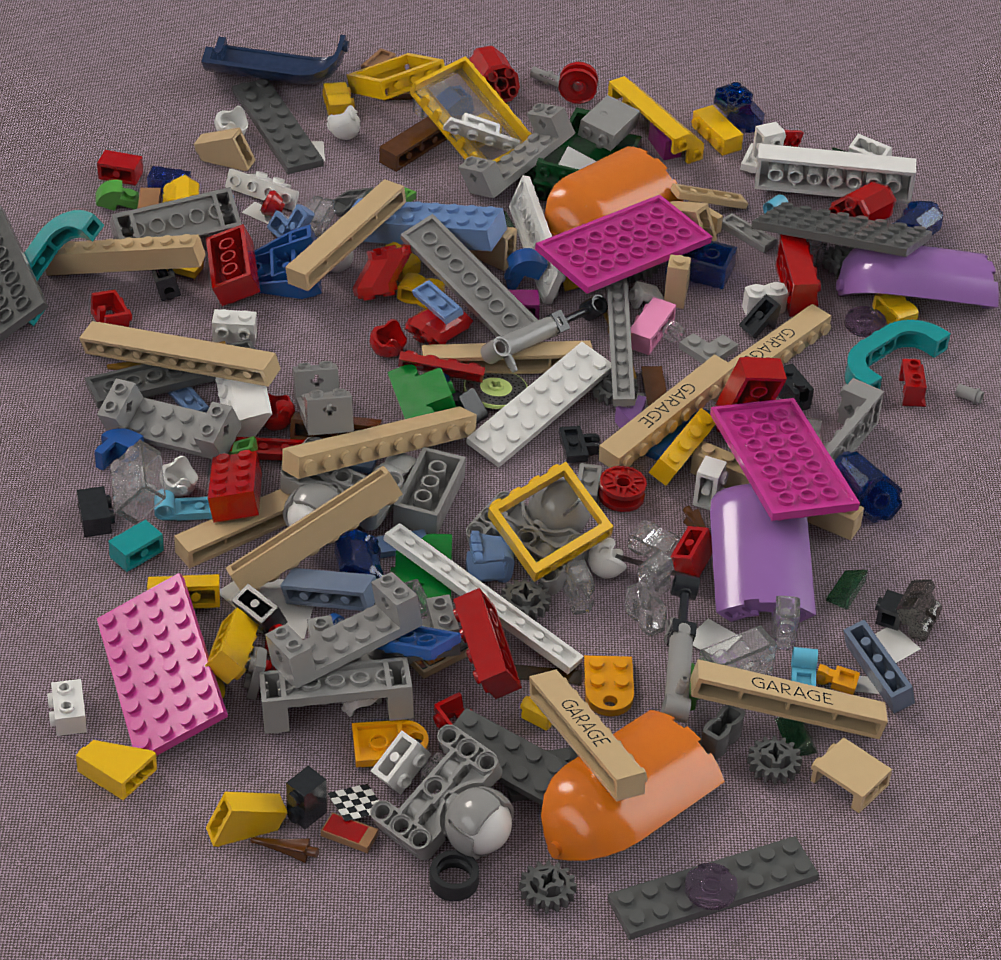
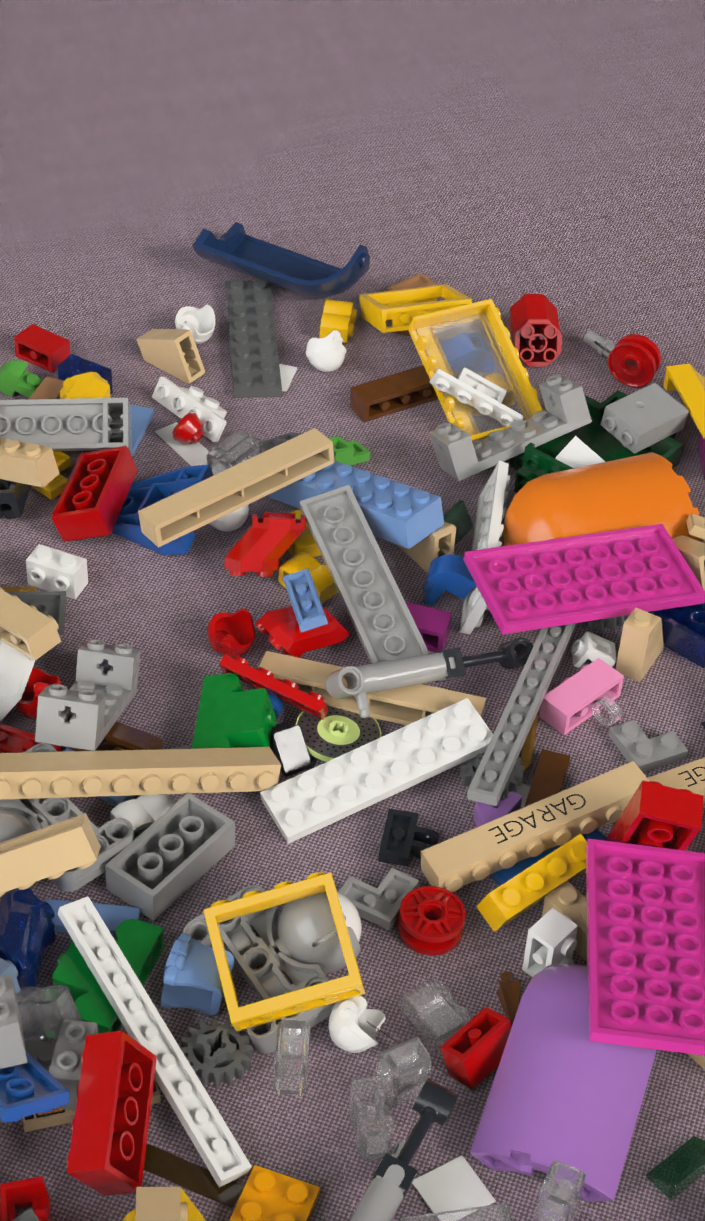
camera: 20 degrees right, 0 degrees up
(299, 218) = (205, 453): medium blue brick -> none

